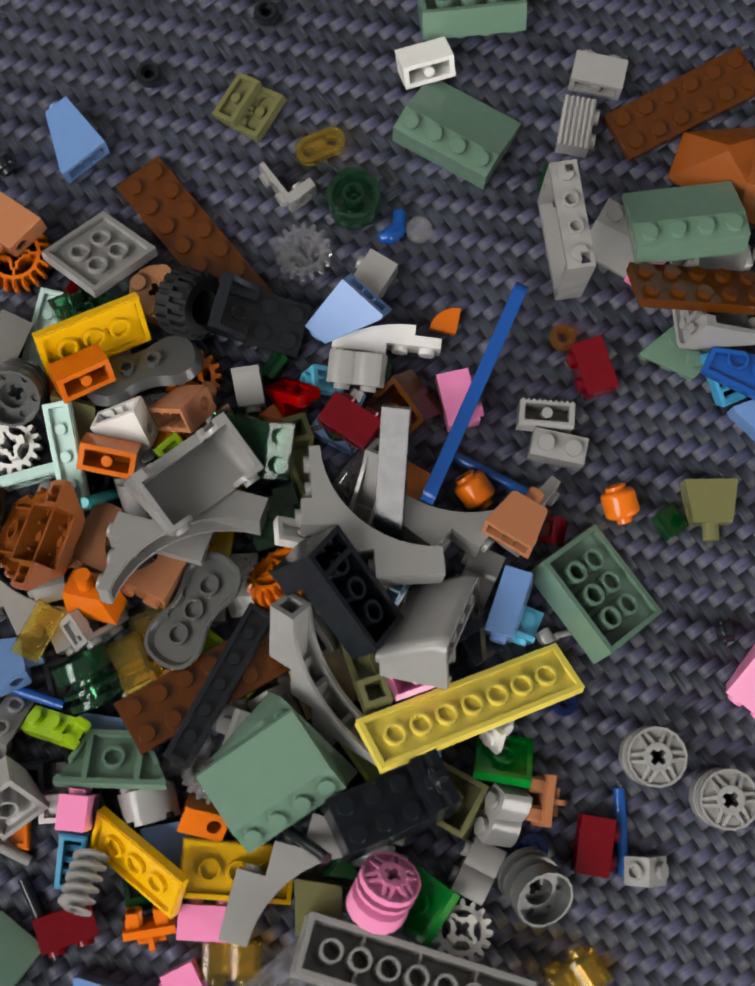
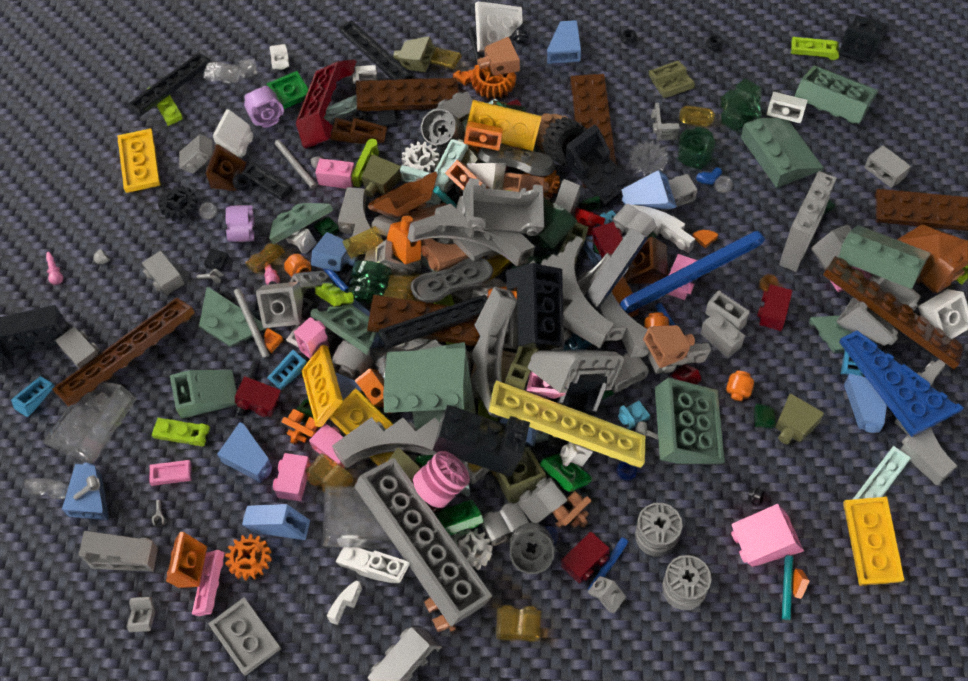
camera: 40 degrees right, 20 degrees down
(81, 880) = (286, 375): light grey piece -> none
(99, 254) = (537, 96): light grey plate -> none
(307, 844) = (417, 424): black bar -> none
(370, 99) = (741, 105): none -> clear green brick
(509, 605) = (632, 388): medium blue slope -> none
(576, 126) = (855, 184): light grey brick -> none

